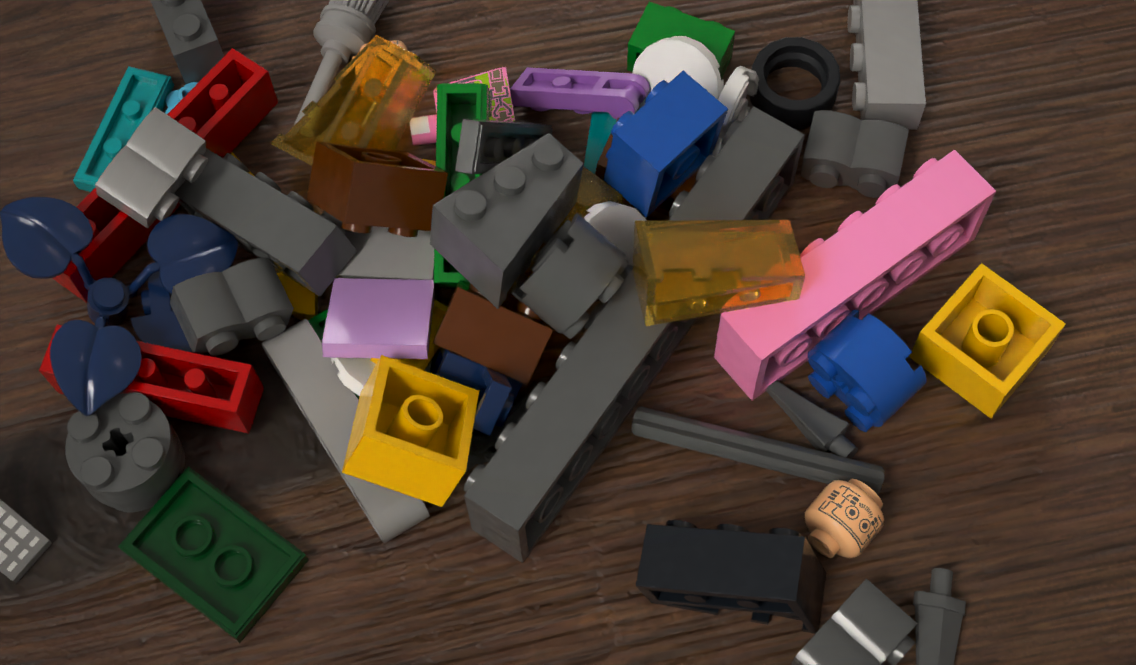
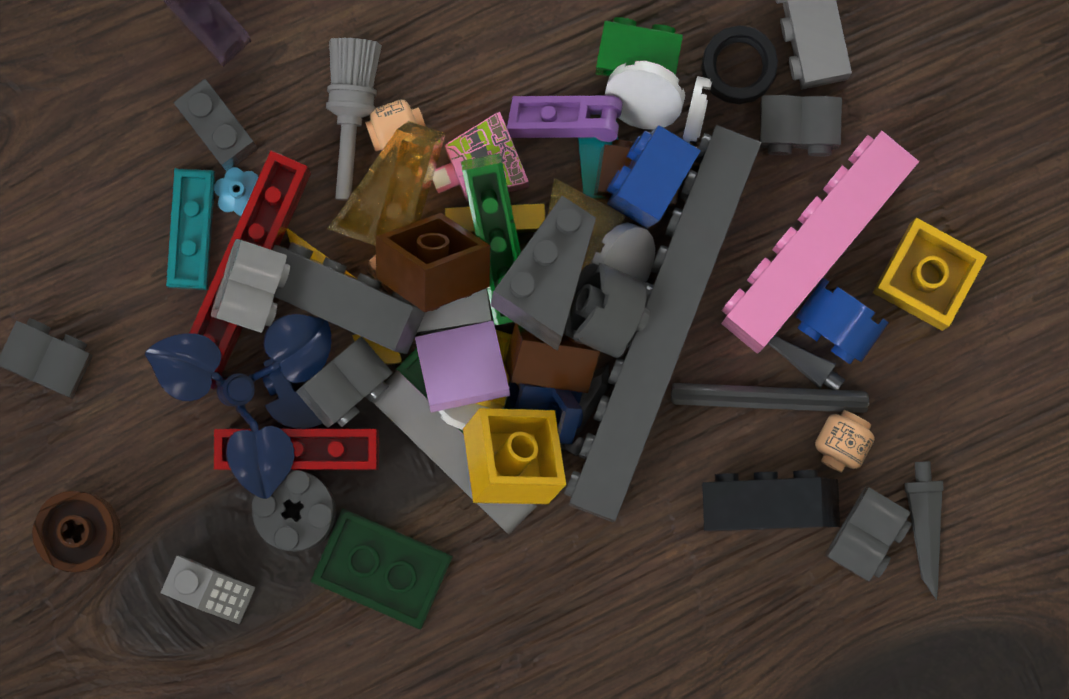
camera: 15 degrees left, 20 degrees up
(490, 142) = (526, 205): dark grey tile -> none
(713, 267) = (718, 287): clear yellow wedge -> none

